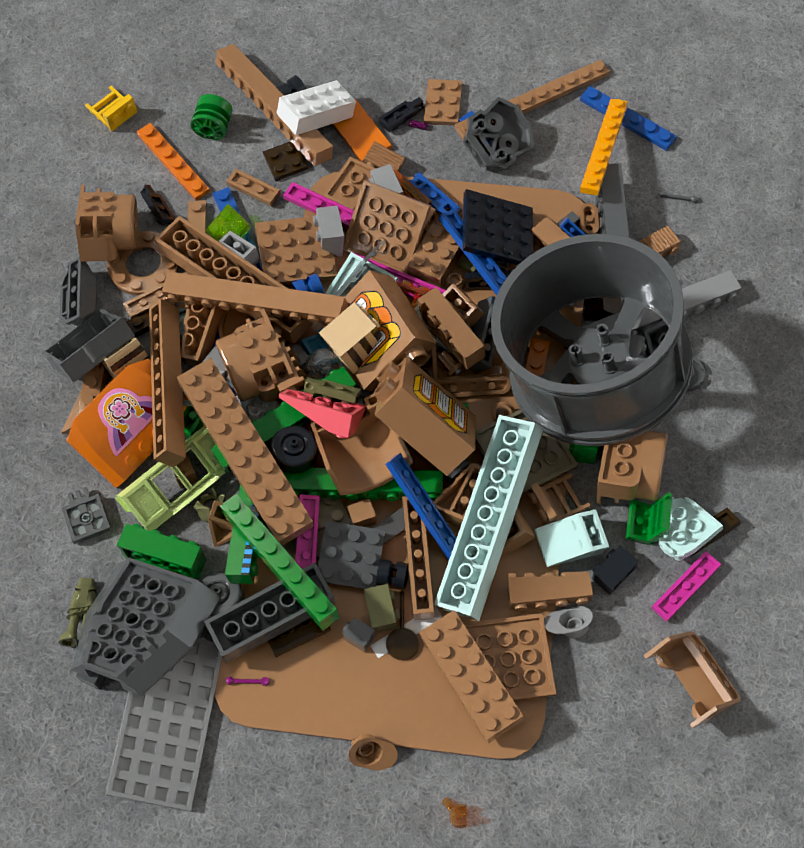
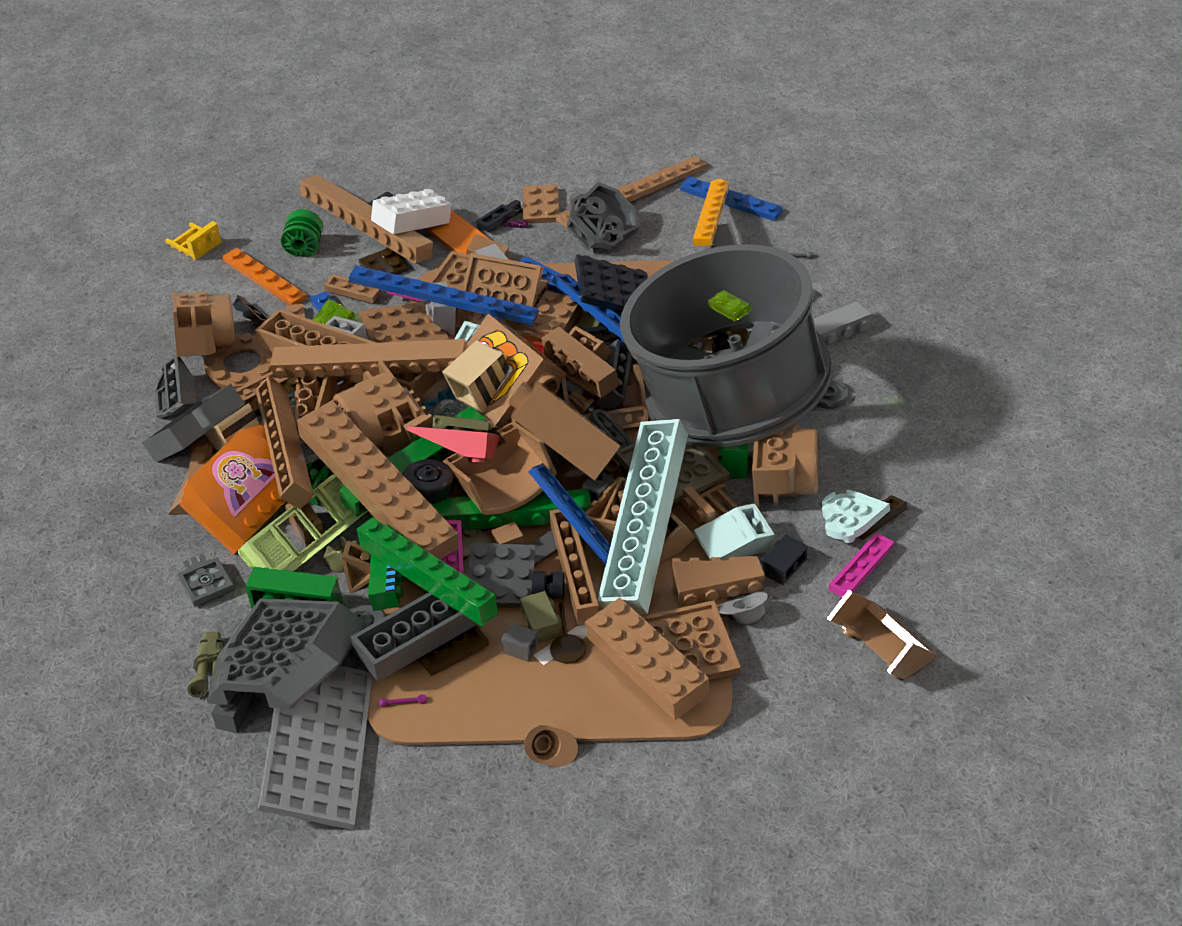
camera: 10 degrees left, 20 degrees down
(332, 225) = (443, 295): none -> blue plate
(457, 813) = (651, 790): clear orange piece -> none
(472, 396) = (607, 424): none -> dark grey plate
(599, 320) = (729, 305): none -> clear neon green plate
(649, 521) = (809, 517): green plate -> none

